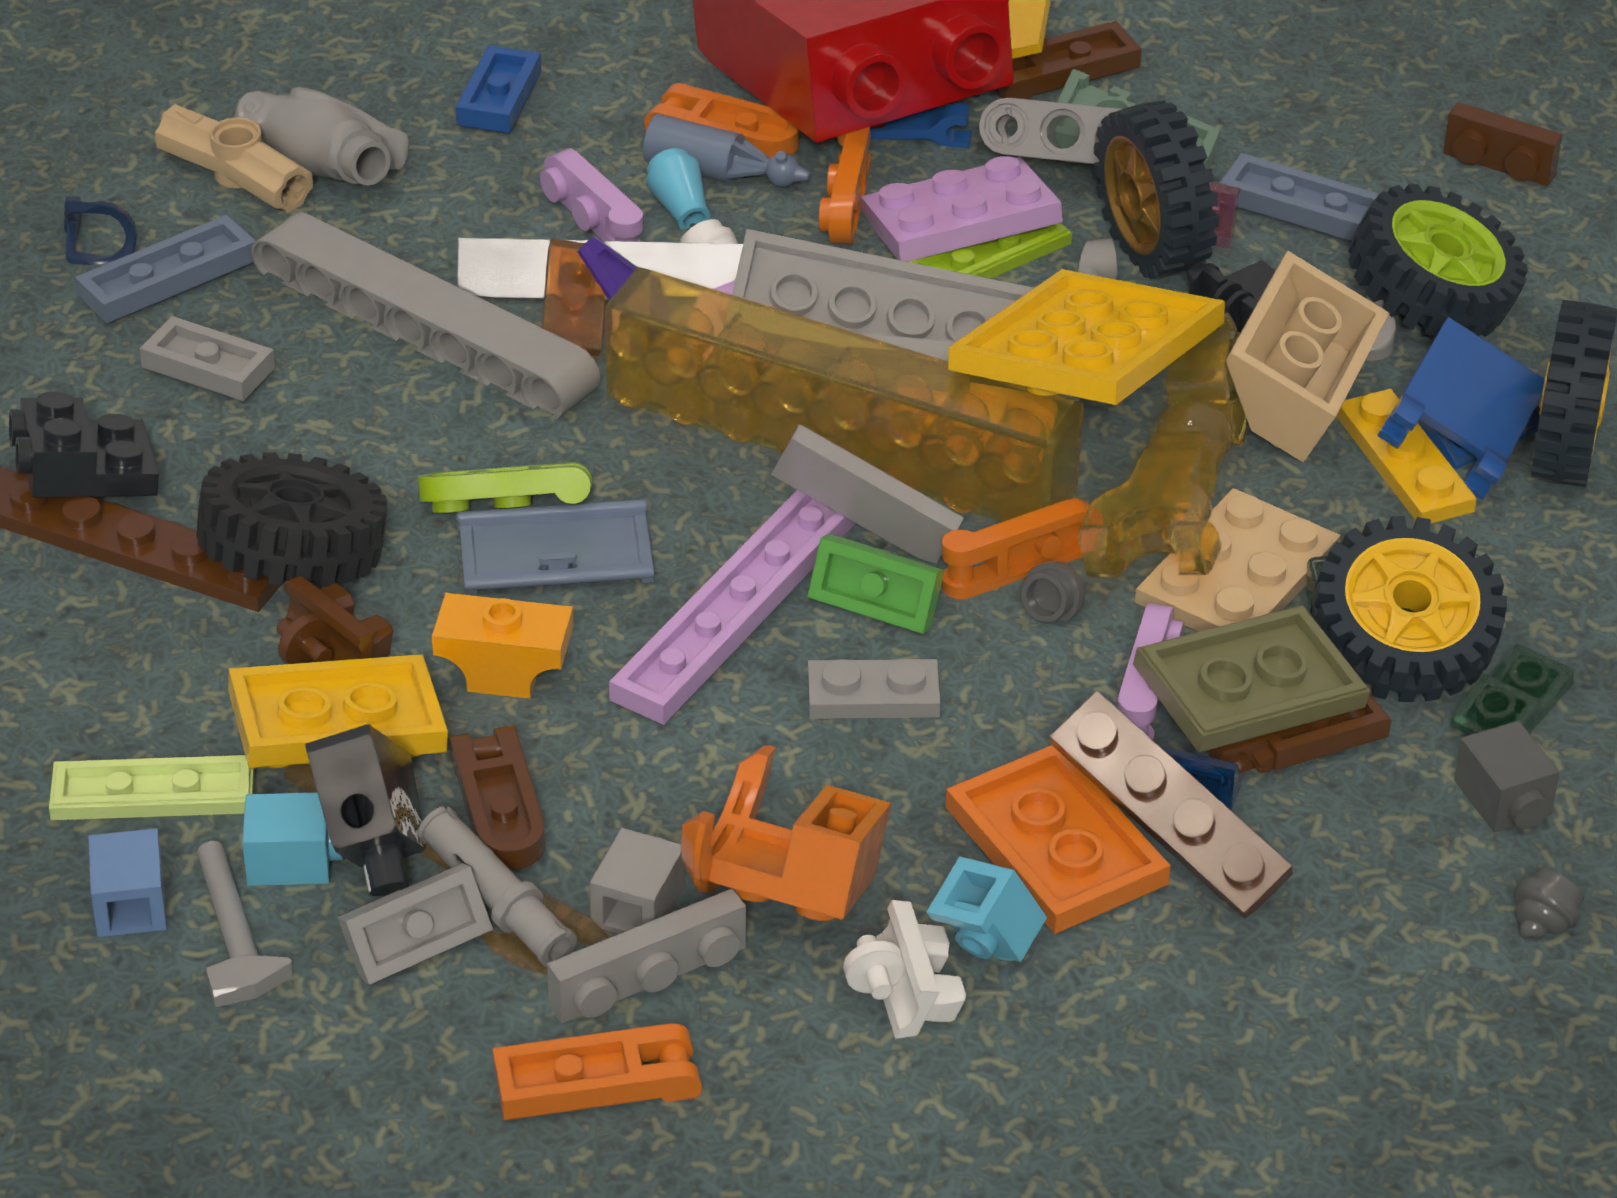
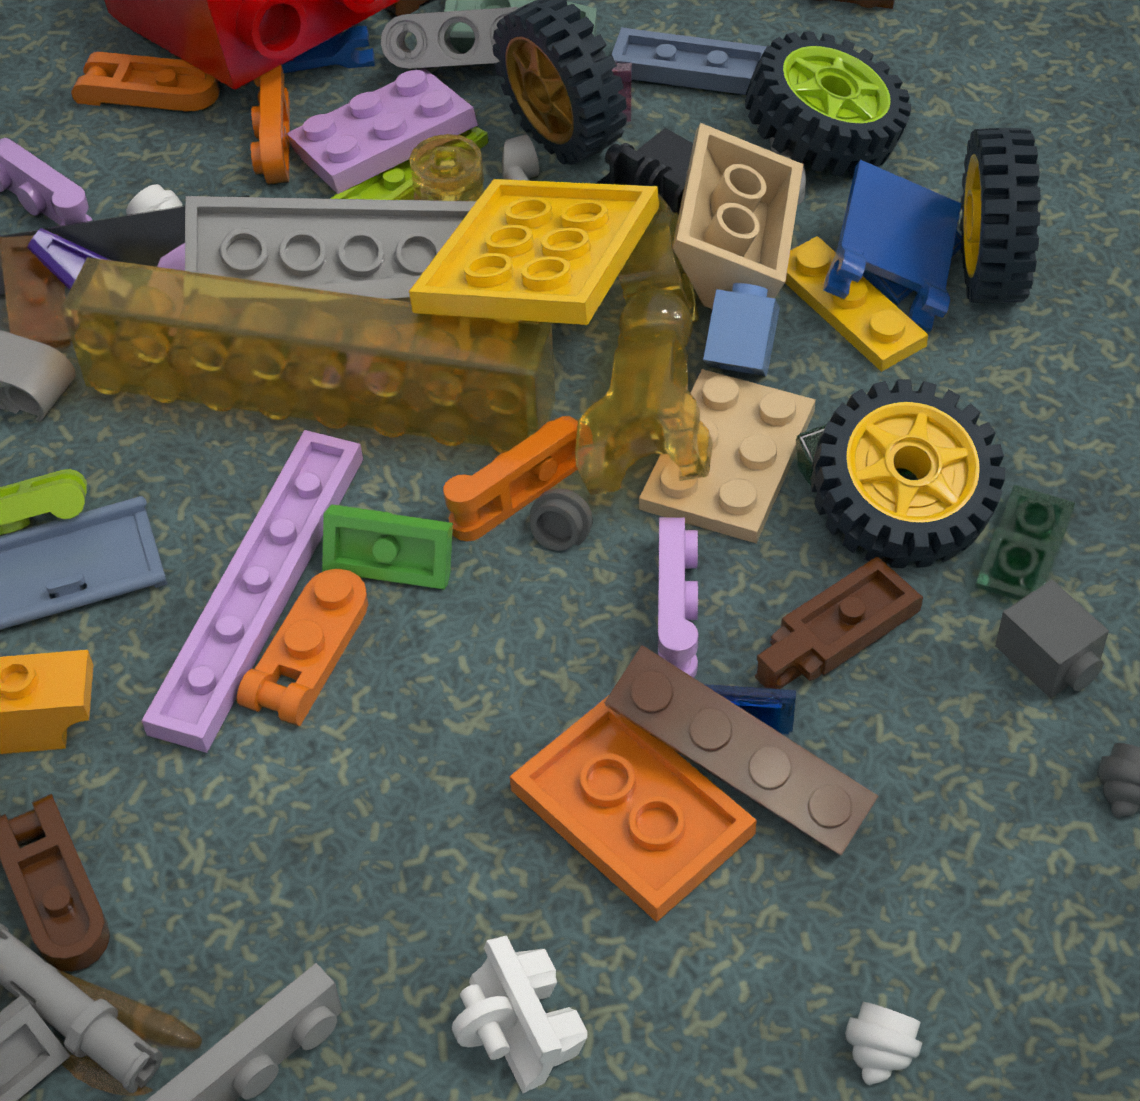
camera: 10 degrees left, 10 degrees up
(636, 881) = (214, 967): light grey brick -> none
(678, 185) = (115, 154): medium azure cone -> none
(720, 151) = (142, 114): sand blue wheel -> none
(777, 655) = (306, 646): none -> orange plate
(815, 866) = (362, 910): orange piece -> none
(865, 495) = (358, 455): light grey tile -> none
(873, 688) = (409, 665): light grey plate -> none
(988, 910) = (586, 926): medium azure brick -> none
(1018, 253) = (447, 169): none -> clear yellow wheel
(1237, 1055) = (878, 1055): none -> white plate
(1250, 678) = (781, 587): olive tile -> none
(1281, 456) = (742, 329): none -> medium blue brick

